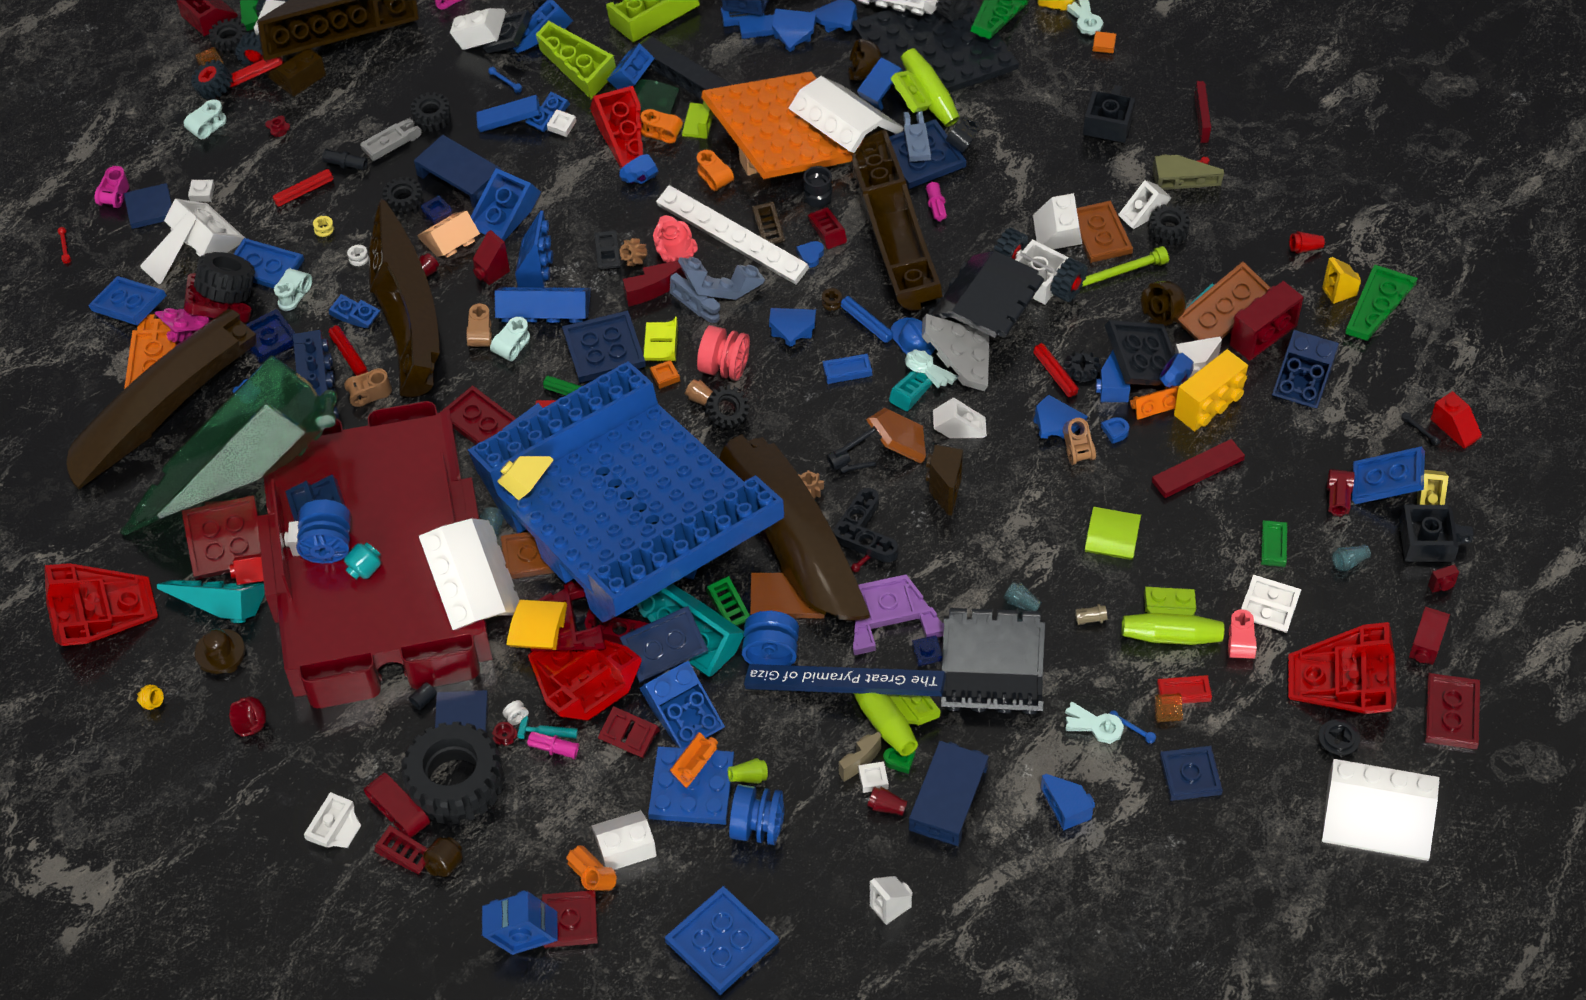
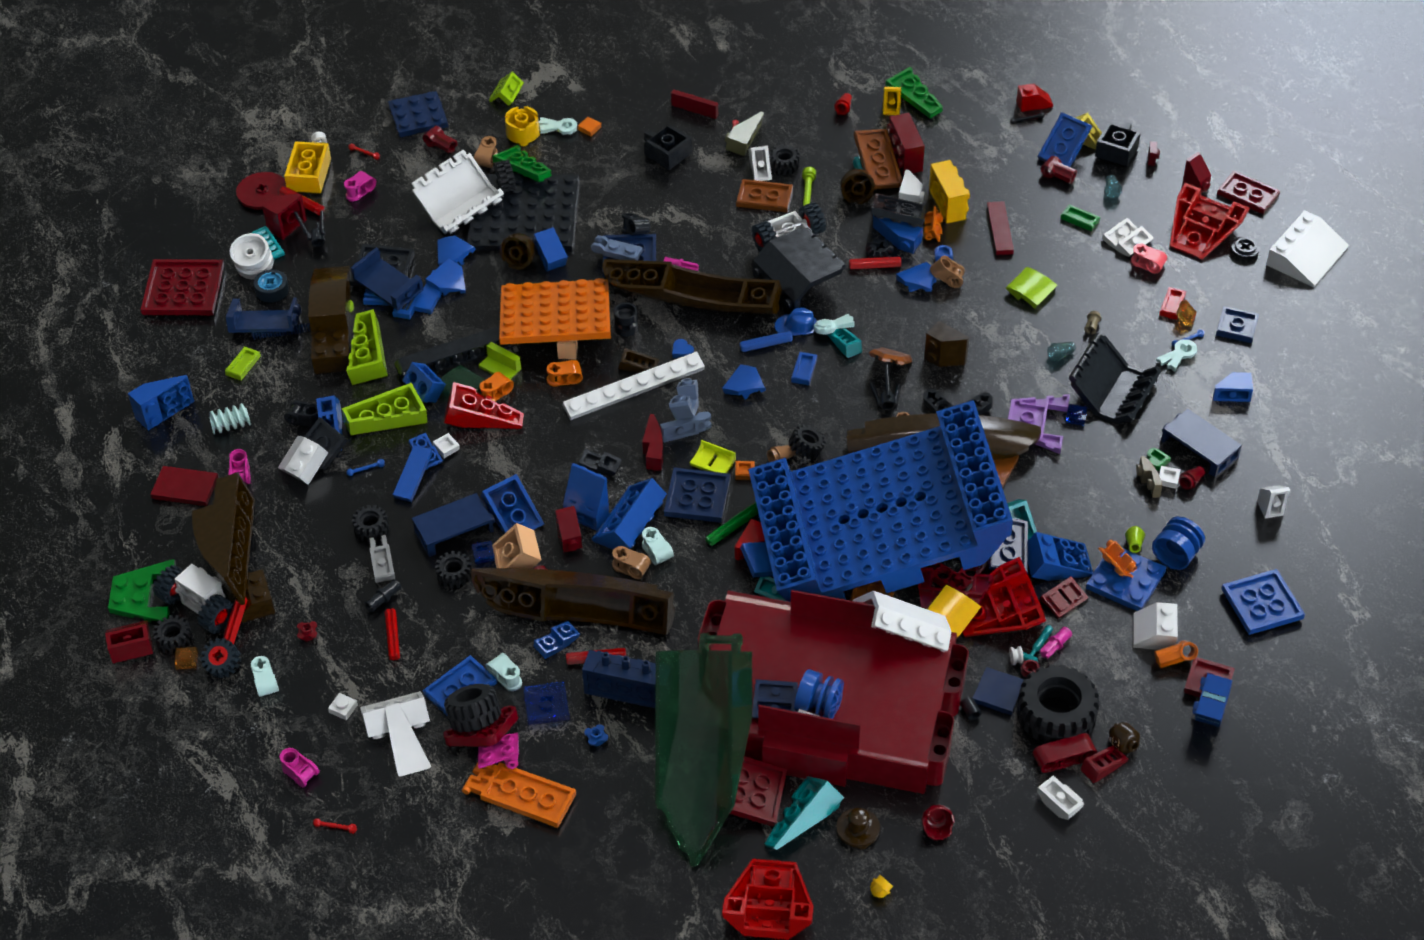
camera: 65 degrees left, 5 degrees down
(127, 300) = (441, 790): blue tile -> none
(148, 205) = (334, 748): dark blue tile -> none
(157, 394) = (574, 792): dark brown slope -> none
(247, 569) = (794, 778): red brick -> none
(325, 231) = (443, 638): light yellow bush -> none
(358, 260) = (494, 614): white bush -> none
(362, 561) = (855, 684): teal head -> none
(370, 387) = (647, 651): medium nougat piece -> none
(477, 415) = (716, 589): dark red tile -> none
(523, 474) = (830, 560): light yellow slope -> none
(633, 252) = (622, 446): medium nougat gear -> none
(639, 170) = (532, 413): blue rock -> none
(673, 239) = (621, 418): coral hair -> none
(723, 353) = (757, 423): coral wheel -> none
(770, 638) = (1036, 484): blue wheel -> none
(829, 229) = (669, 331): dark red slope -> none
(831, 293) = (734, 353): dark brown bush -> none
(839, 113) = (575, 275): white hinge -> none
(845, 680) = (1089, 459): dark blue tile -> none
(893, 715) = (1122, 444): lime plate -> none
(924, 89) = (577, 224): lime plate -> none
(958, 420) = (892, 326): white slope -> none
(959, 348) = (831, 298): light grey plate -> none
(1058, 223) = (749, 208): white slope -> none
(1171, 619) = (1119, 287): lime plate -> none
(1177, 370) = (923, 199): blue rock -> none
(1306, 369) = (951, 143): dark blue slope -> none

